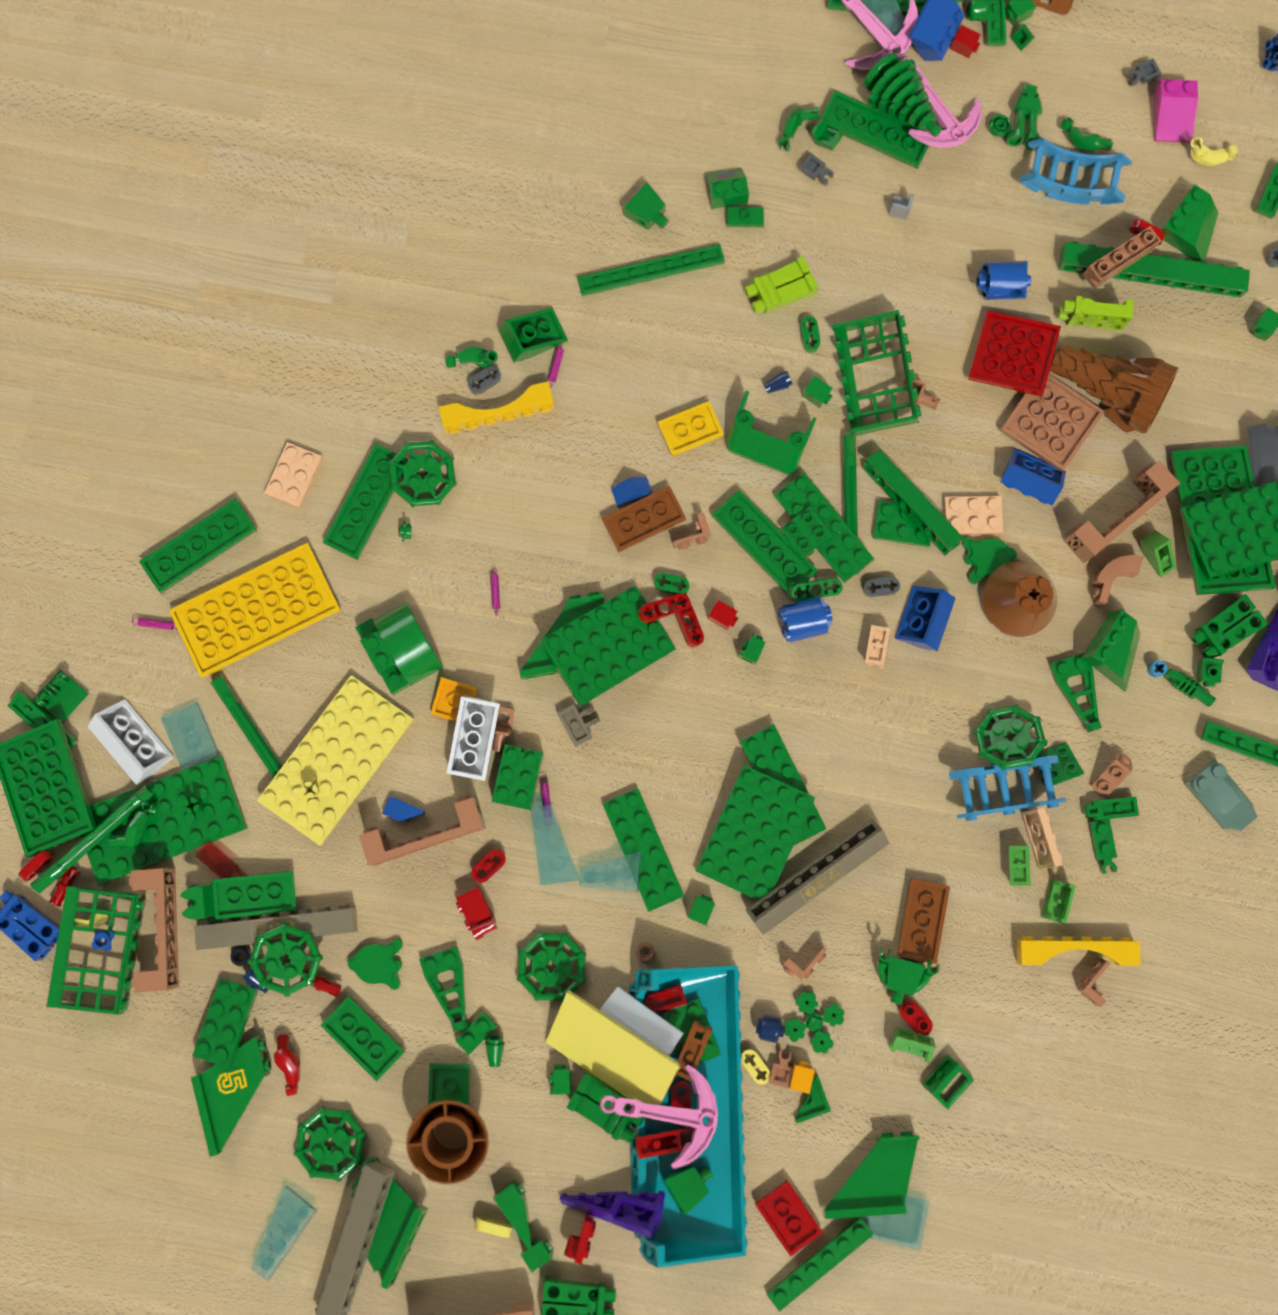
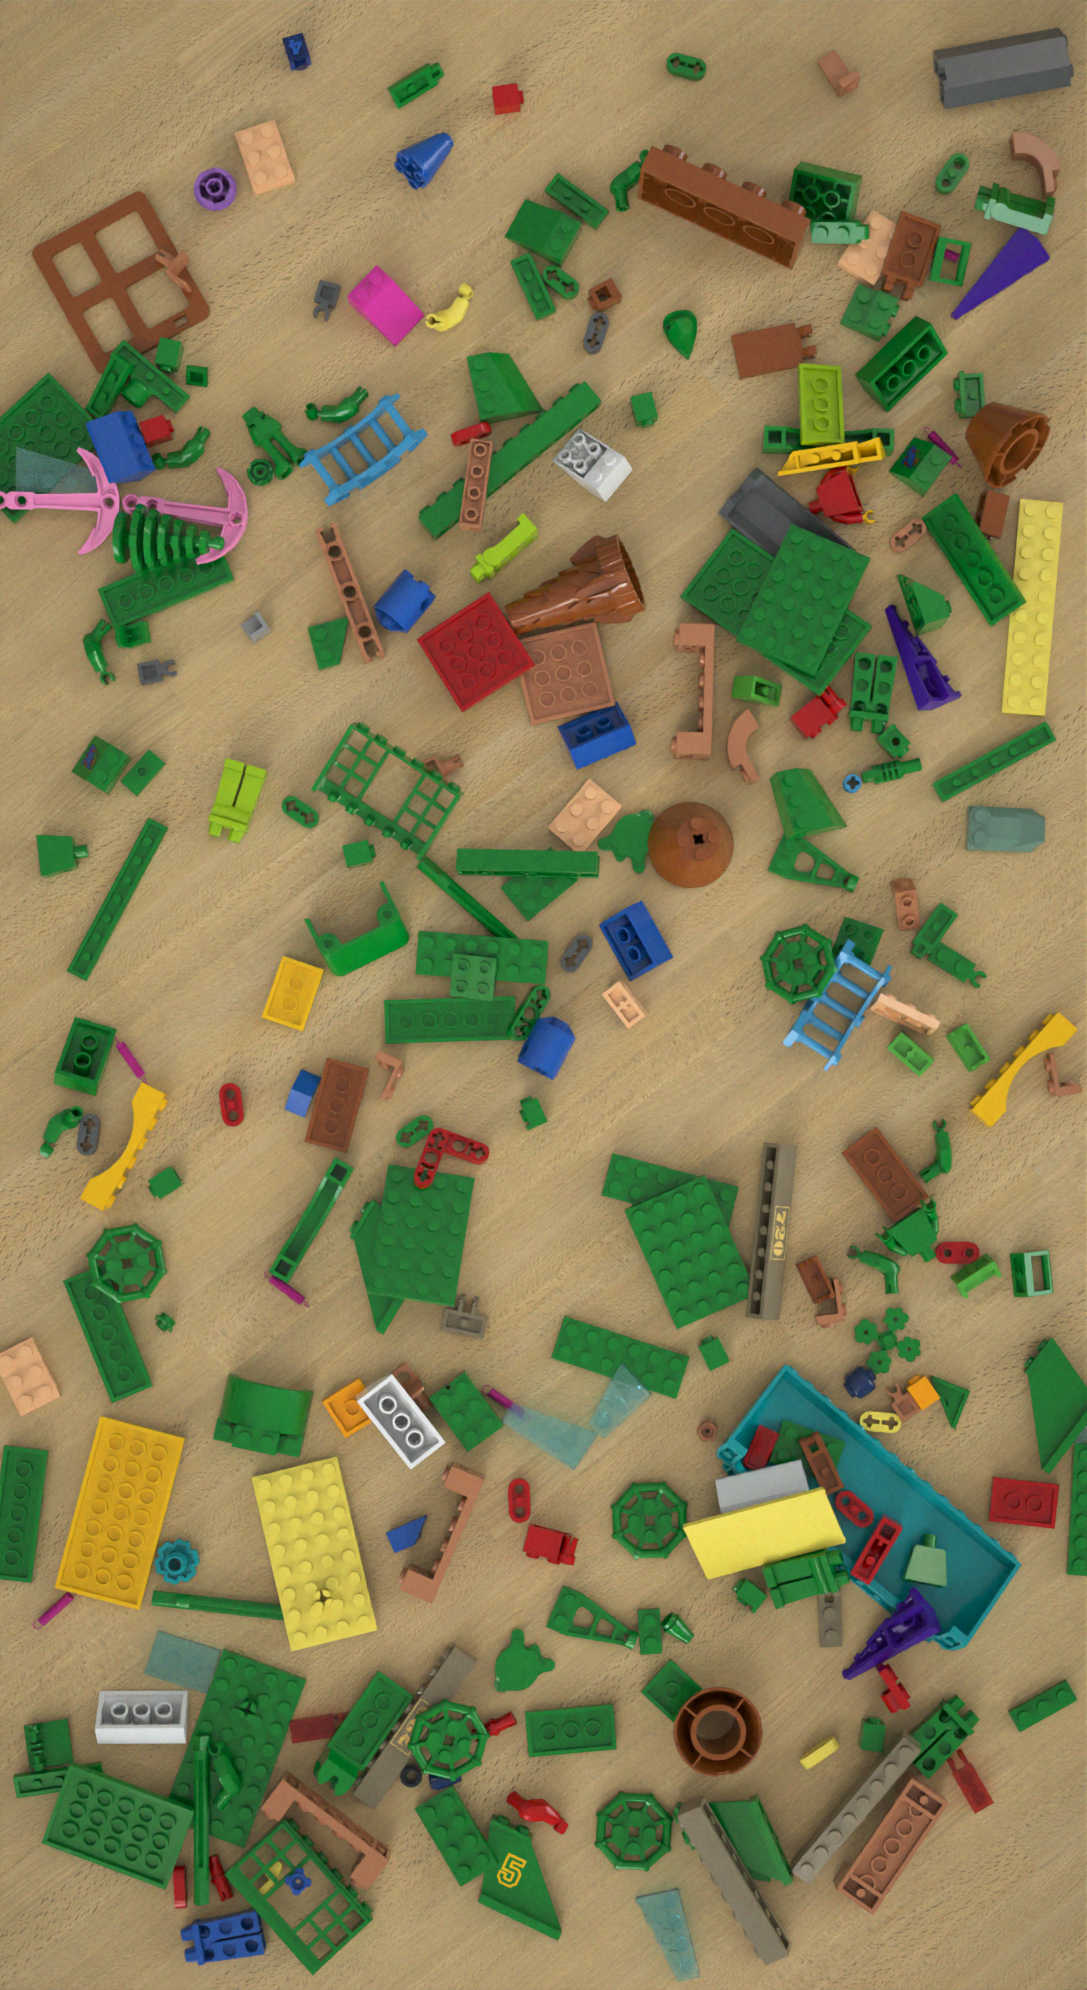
camera: 50 degrees left, 5 degrees up
(254, 675) = (177, 1561): none -> teal plant
(478, 1287) = (855, 1806): none -> dark tan brick
(496, 453) = (165, 1183): none -> green brick
(514, 1206) = (816, 1720): green slope -> none
(536, 571) = (312, 1220): none -> green arch
(581, 451) = (231, 1104): none -> red plate
(590, 1152) = (829, 1620): none -> dark tan plate
(705, 1107) = (865, 1520): bright pink piece -> none
(723, 615) = (482, 1111): red brick -> none
(778, 382) = (319, 880): dark blue cone -> none
(811, 936) = (815, 1279): none -> dark orange hinge
(862, 973) = (883, 1265): none -> green arm
(933, 259) = (328, 642): none -> green wing
(972, 72) = (187, 455): none -> green arm
(972, 949) = (943, 1156): none -> green arm
(981, 235) = (345, 579): none -> nougat piece
(1181, 605) = (818, 713): none -> red hinge
(1201, 324) = (593, 464): none -> white slope

